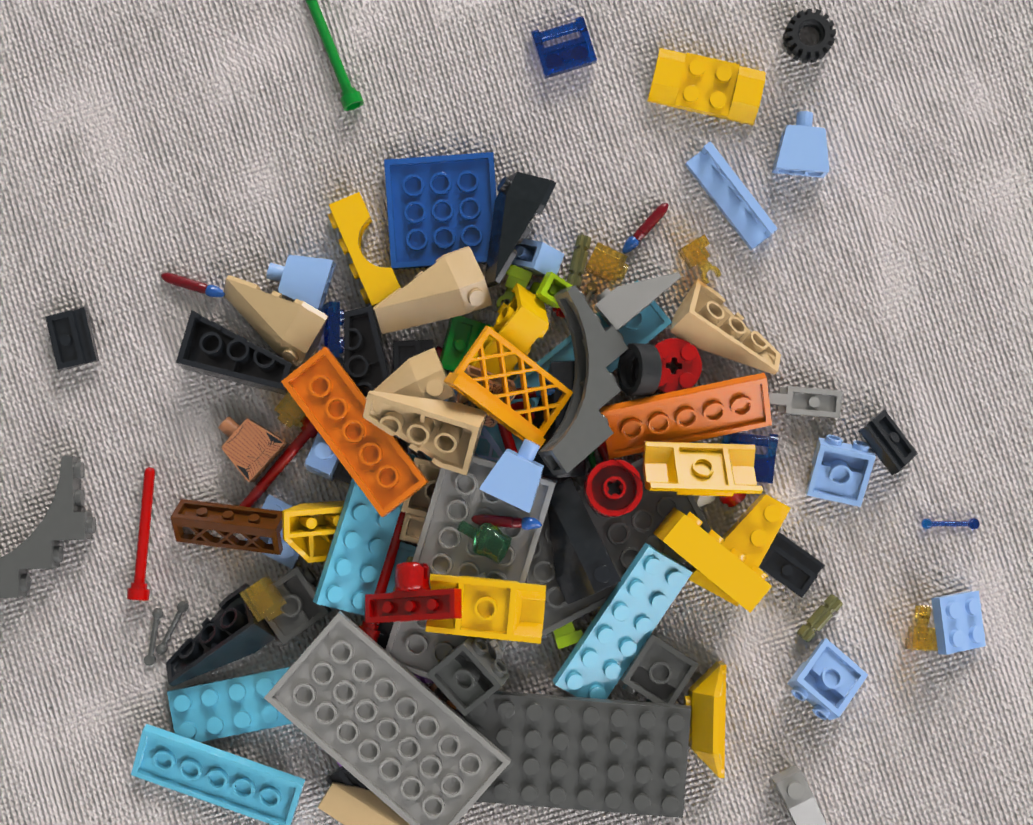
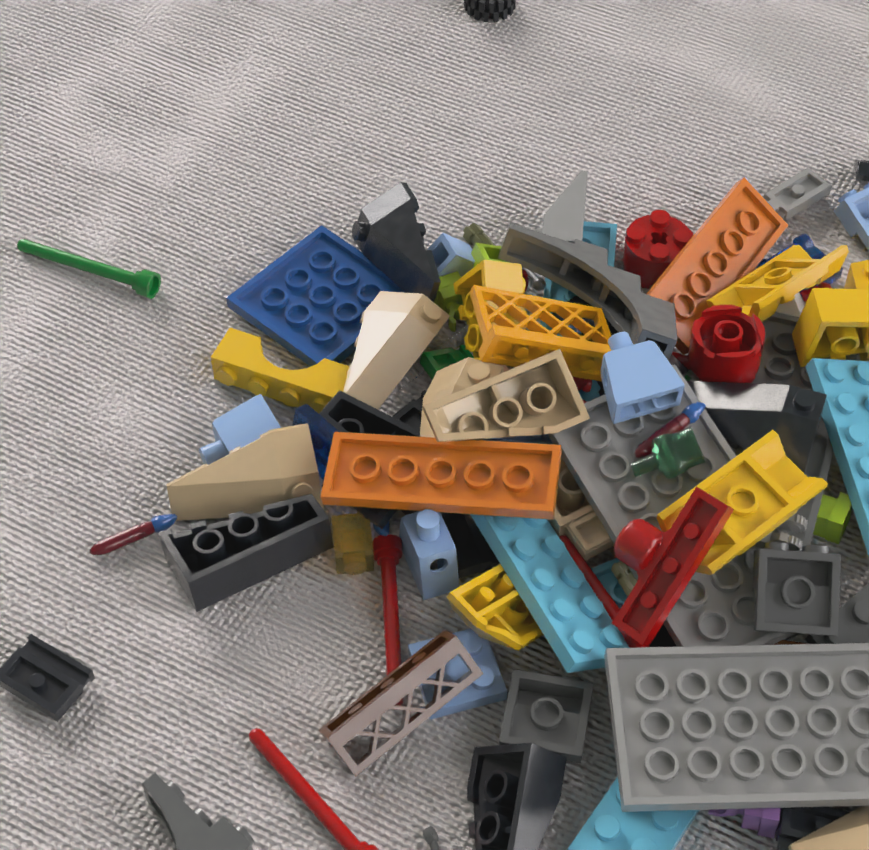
camera: 45 degrees left, 35 degrees down
(250, 446) = (343, 615): nougat torso -> none
(263, 599) = (514, 715): clear yellow brick -> none
(565, 55) = (307, 132): clear blue plate -> none
(607, 263) = (500, 218): clear yellow brick -> none
(633, 241) = (513, 190): dark red piece -> none
(639, 370) = (652, 245): black tyre -> none
(696, 253) = (574, 163): clear yellow piece -> none
(707, 86) = (451, 75): yellow piece -> none
(715, 329) = (629, 202): tan wedge -> none
(731, 196) = (556, 122): light blue fence -> none
(802, 149) = (574, 56): light blue torso -> none

